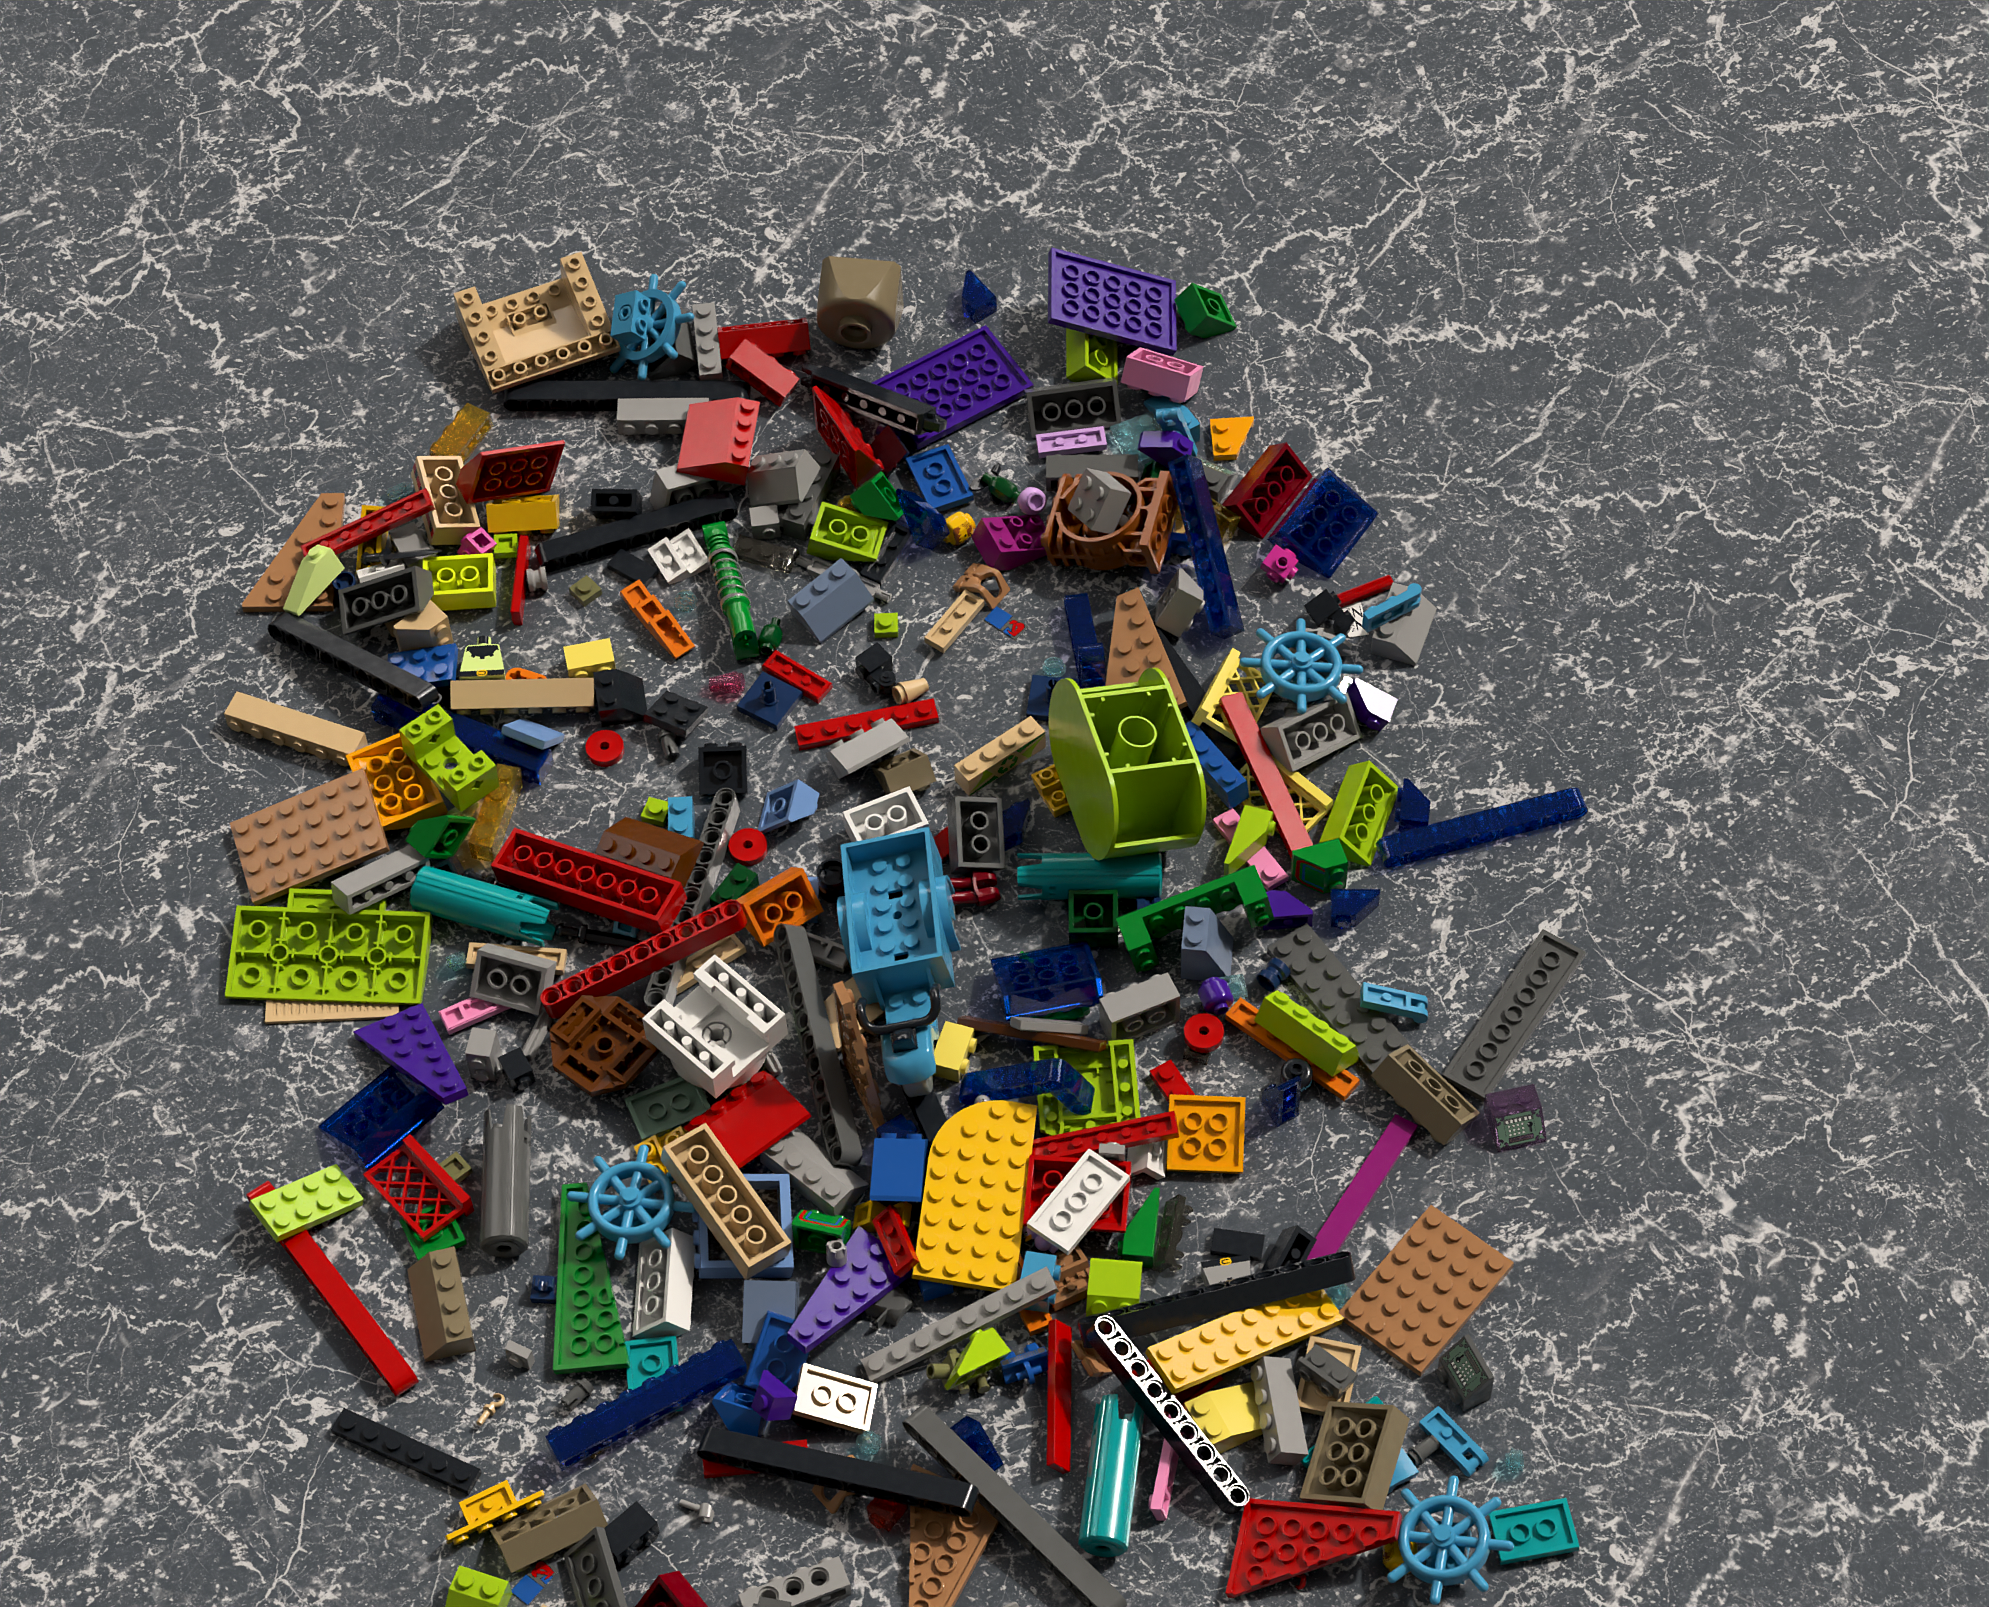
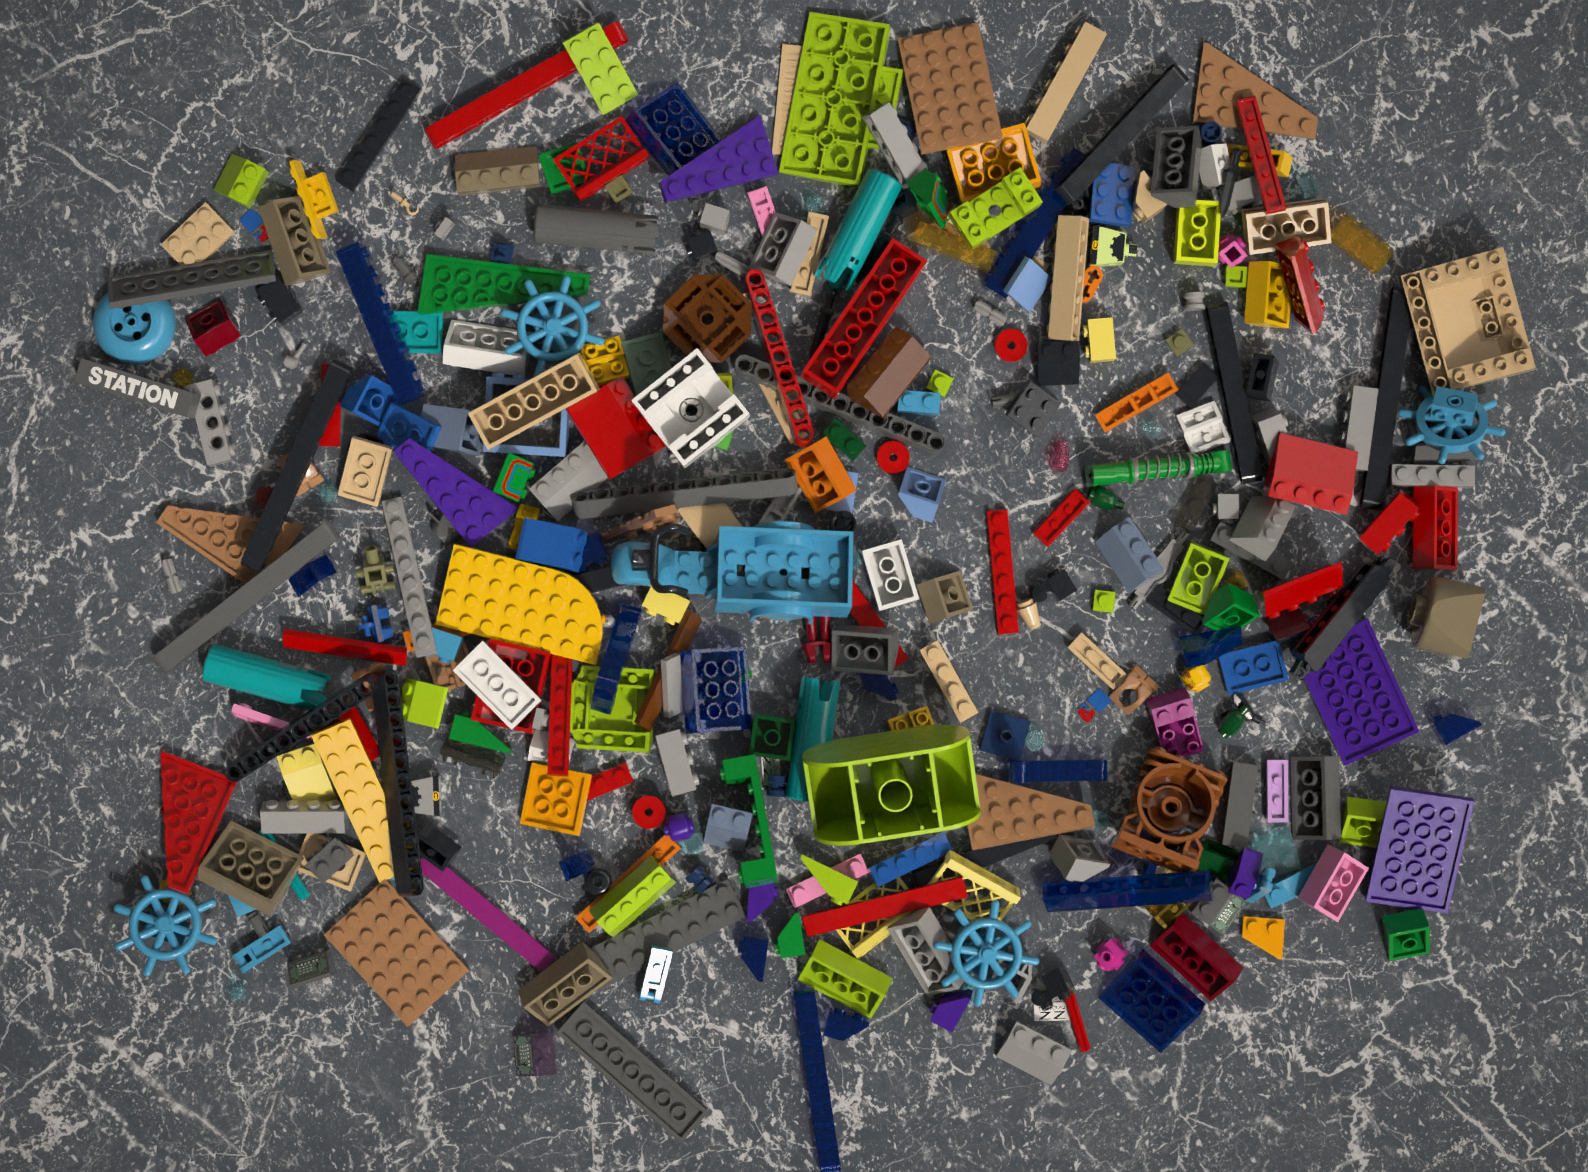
camera: 90 degrees right, 30 degrees up
(312, 578) = (1213, 103): yellowish green slope -> none
(520, 580) = (1195, 286): red tile -> none
(566, 775) = (994, 315): none -> light grey piece
(723, 768) = (970, 443): black plate -> none
(770, 701) = (1039, 491): dark blue tile -> none
(773, 1398) = (365, 420): dark purple slope -> none
(836, 1253) = (479, 483): light grey hose -> none
(866, 746) = (967, 568): light grey slope -> none
(895, 1241) = (489, 534): red plate -> none
(979, 1356) = (376, 585): lime slope -> none
(1032, 501) = (1210, 746): lavender animal -> none
(1099, 501) = (1180, 803): light grey brick -> none
(1237, 1243) = (458, 809): black tile -> none
(1392, 608) = (1036, 1043): dark azure plate -> none
(1535, 1530) = (177, 997): teal plate -> none

